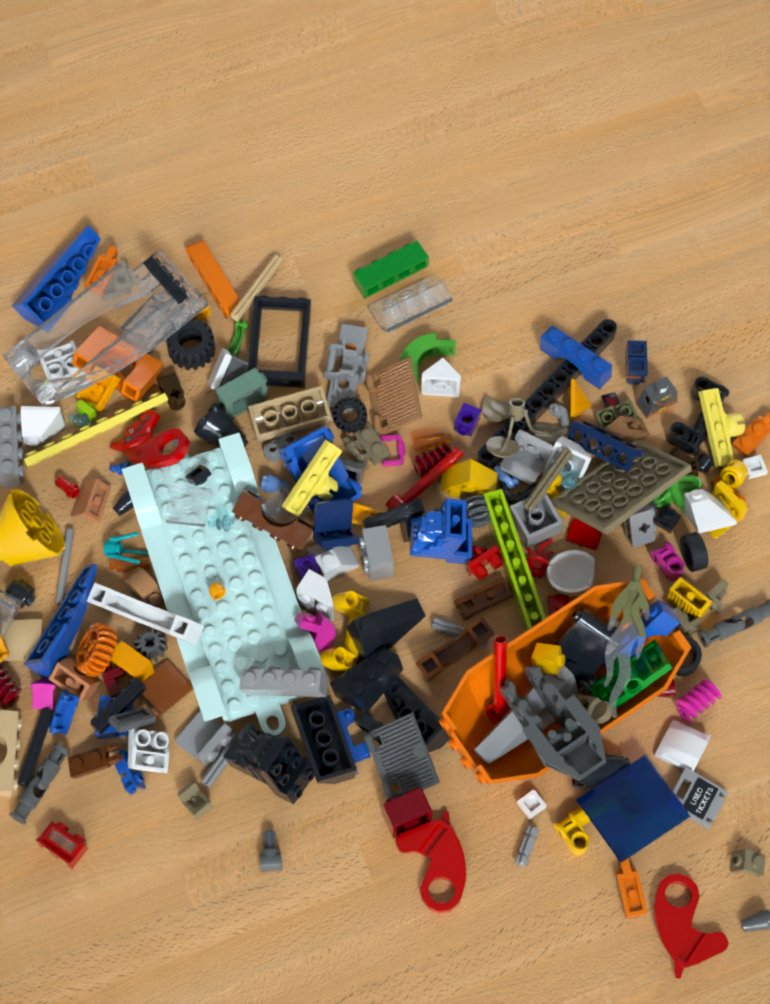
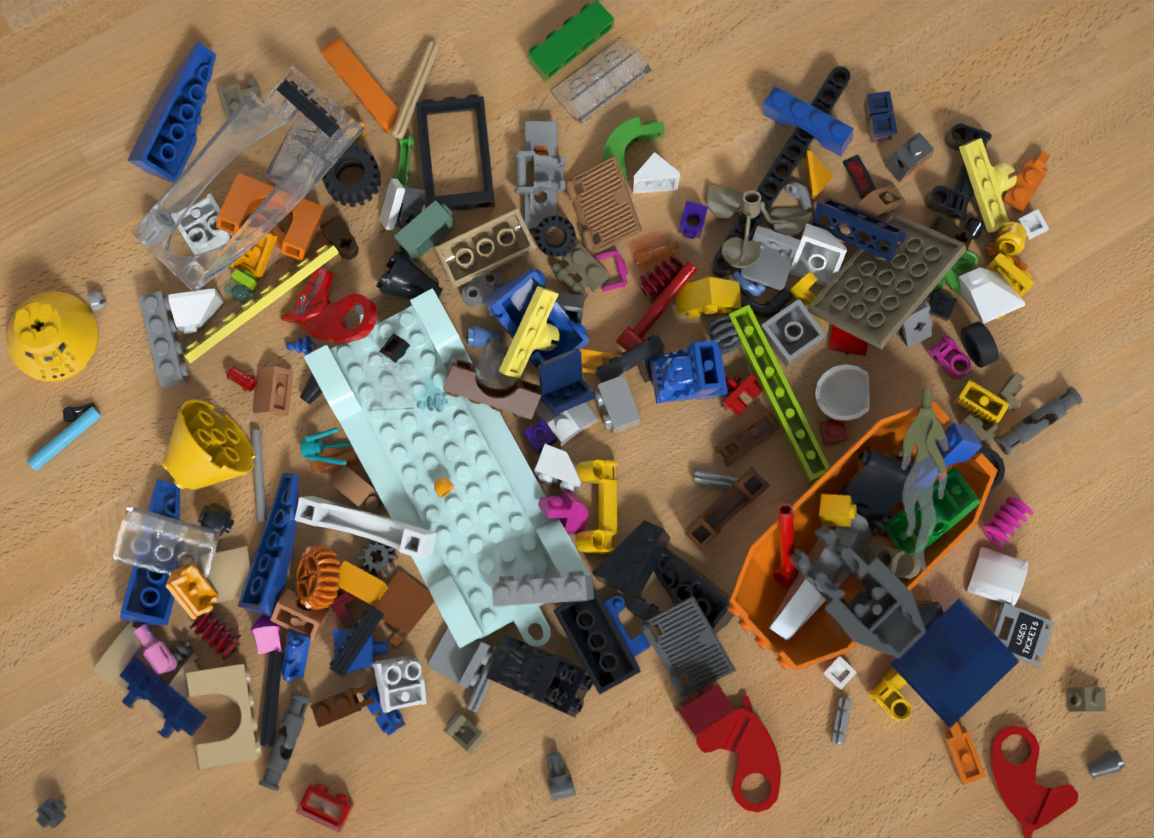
camera: 10 degrees left, 15 degrees up
(102, 265) = (227, 96): orange hinge -> none
(132, 719) = (376, 655): dark grey tile -> none
(384, 627) = (642, 494): black wedge -> none
(538, 563) = (802, 383): red piece -> none
(547, 479) = (801, 285): dark tan axle -> none
(569, 481) = (825, 280): clear light blue hair -> none
(611, 413) = (864, 184): olive slope -> none

